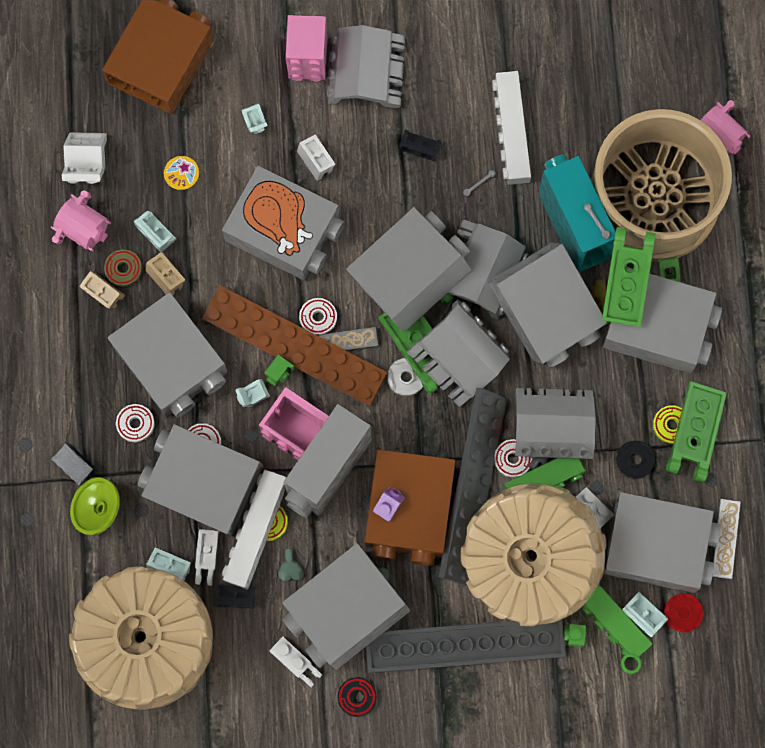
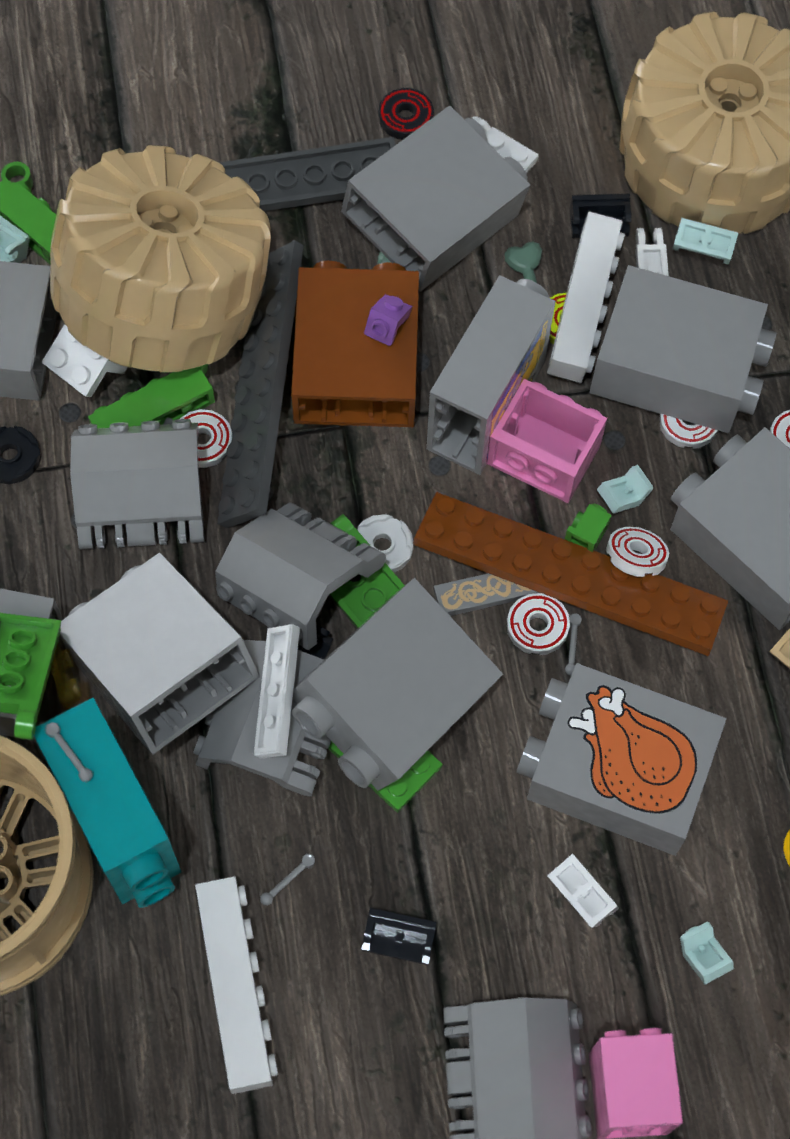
camera: 170 degrees right, 10 degrees down
(241, 356) = (652, 547): none -> white tile
(295, 318) = (575, 621): none -> light grey hinge
(478, 267) = (276, 691): none -> white tile

